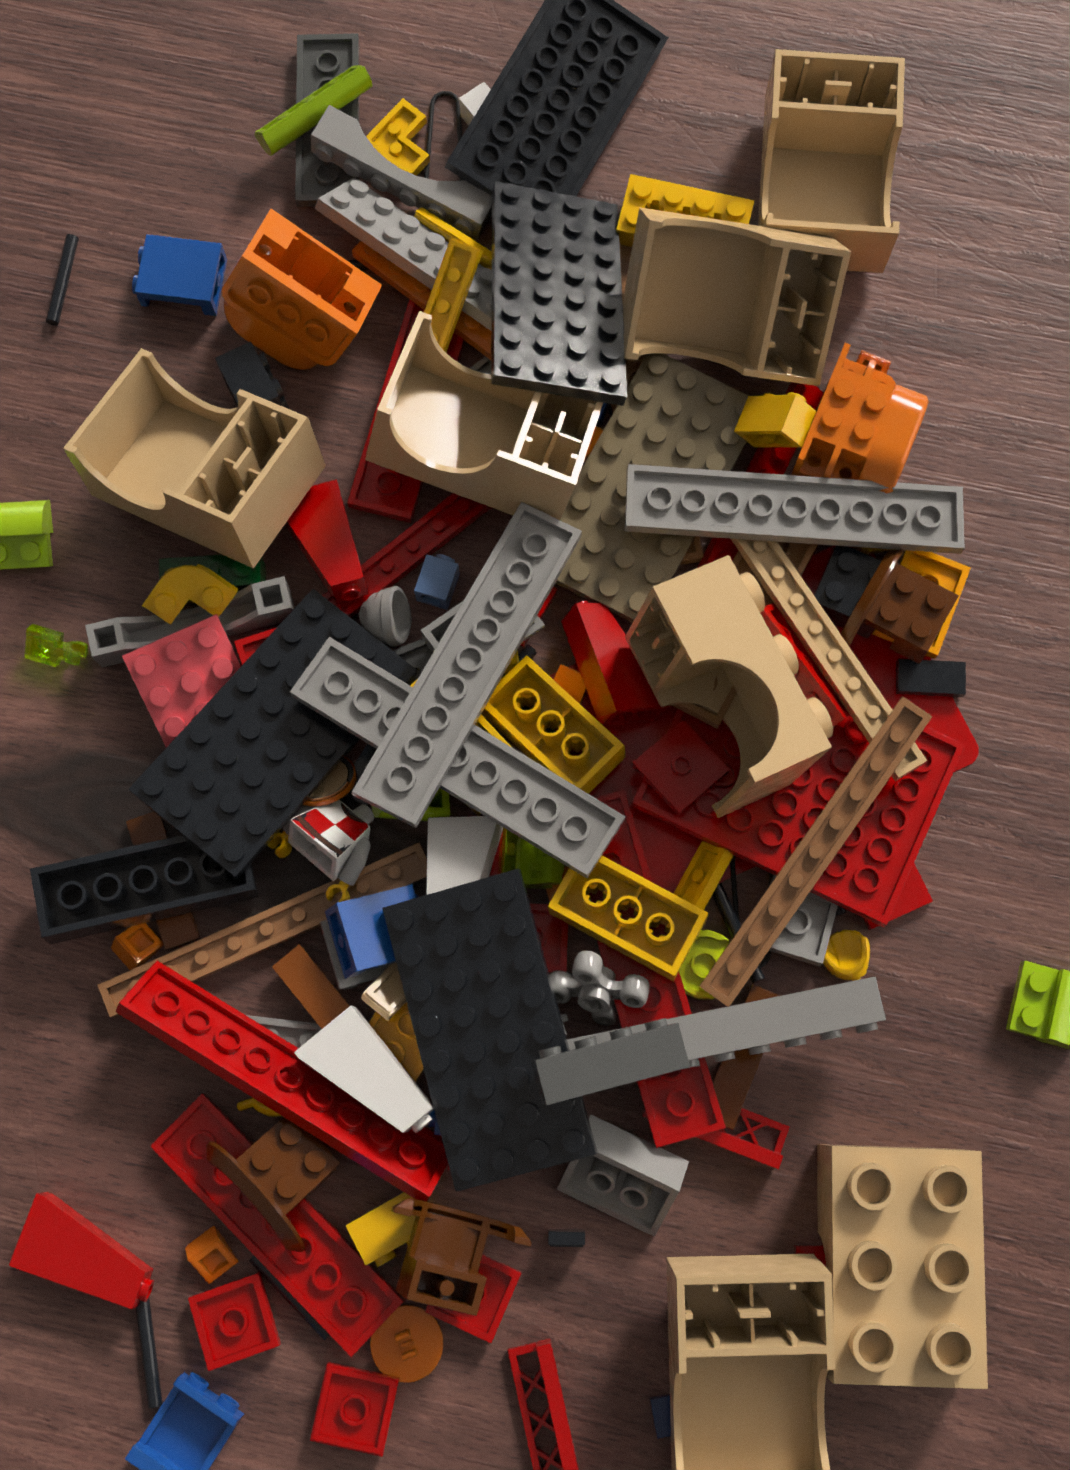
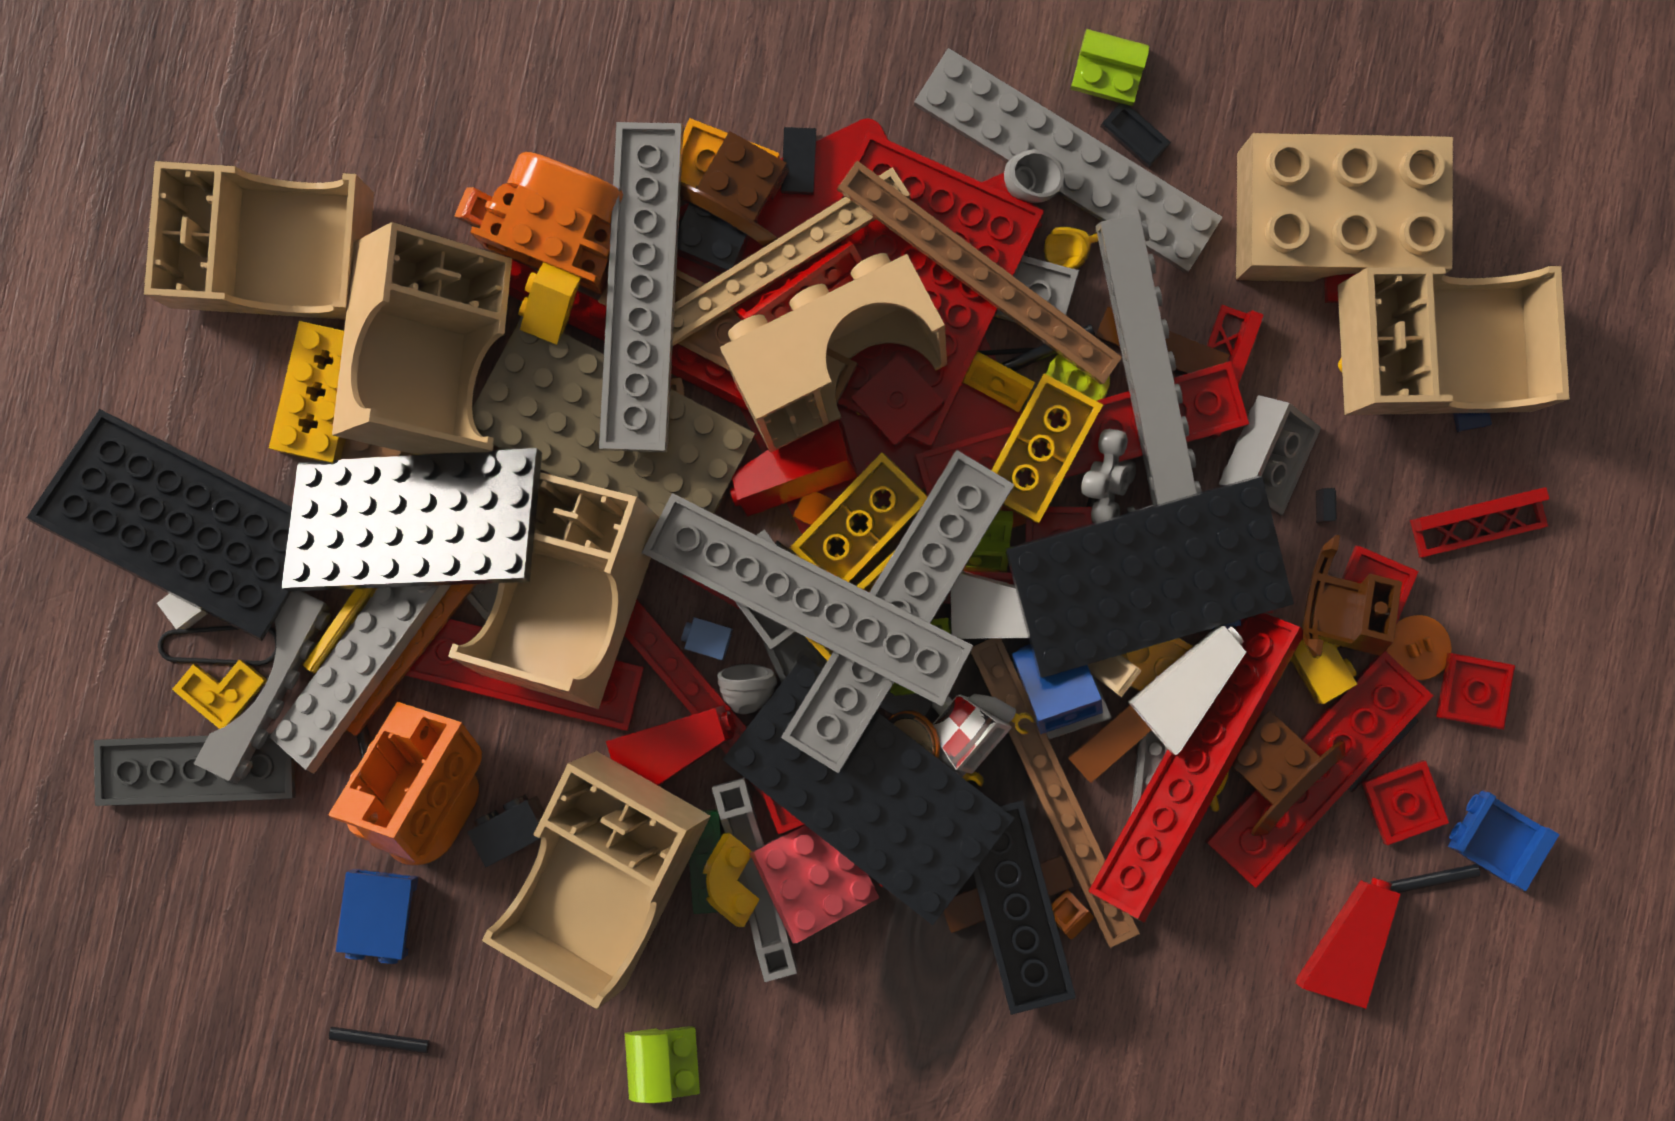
camera: 90 degrees left, 10 degrees up
(48, 647) = (779, 1020): clear neon green plate -> none
(210, 1255) = (1347, 828): orange slope -> none
(309, 111) = (189, 782): lime brick -> none
(451, 289) = (411, 631): yellow tile -> none
(610, 1062) = (1185, 463): dark grey brick -> none
(923, 913) = (1033, 176): none -> light grey hat
(942, 961) = (1094, 174): none -> light grey plate
(974, 1034) = (1135, 134): none -> black tile

